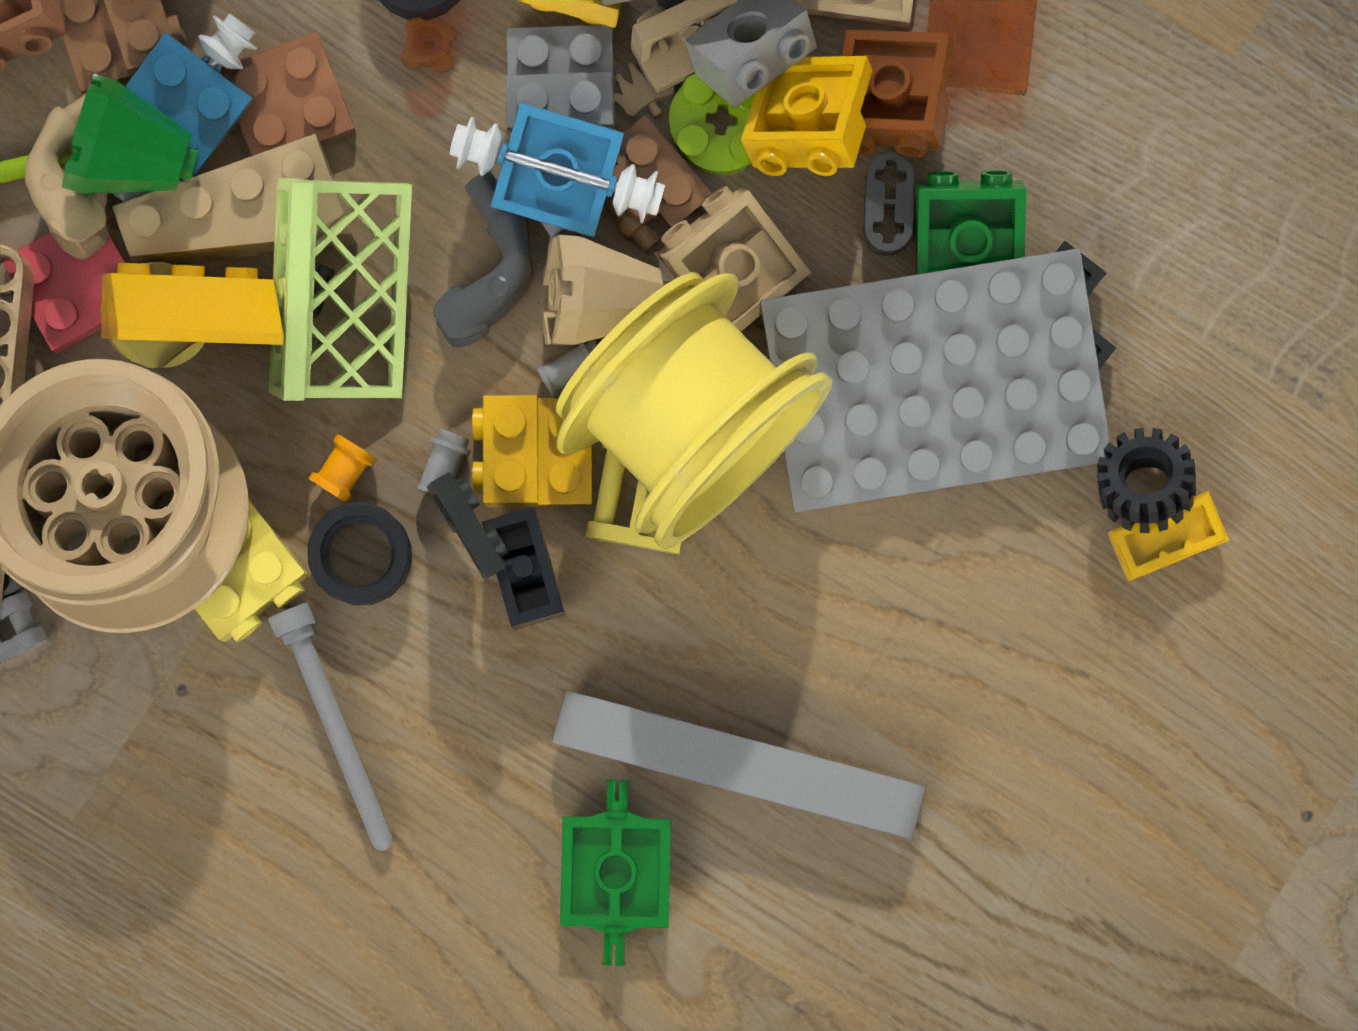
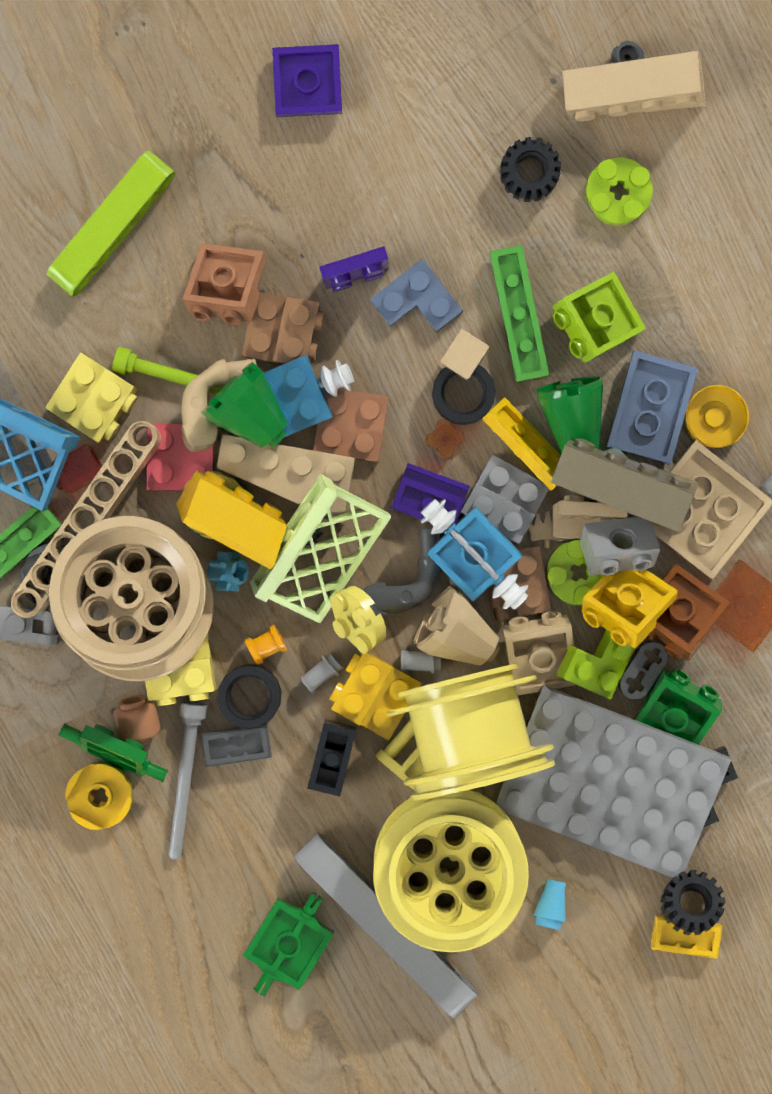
camera: 30 degrees right, 5 degrees up
(206, 842) = (80, 800): none -> yellow plate
(209, 735) = (126, 755): none -> green plate
(220, 679) = (137, 719): none -> nougat head
(229, 396) = (228, 571): none -> medium azure gear
(381, 634) = (236, 745): none -> dark grey plate
(430, 125) = (422, 487): none -> dark purple plate
(447, 354) = (356, 619): none -> light yellow plate
(456, 504) = (315, 711): pearl dark grey plate -> none
(786, 533) = (470, 918): none -> light yellow wheel
(831, 233) = (598, 671): none -> lime plate
(955, 604) = (551, 906): none -> medium azure cone

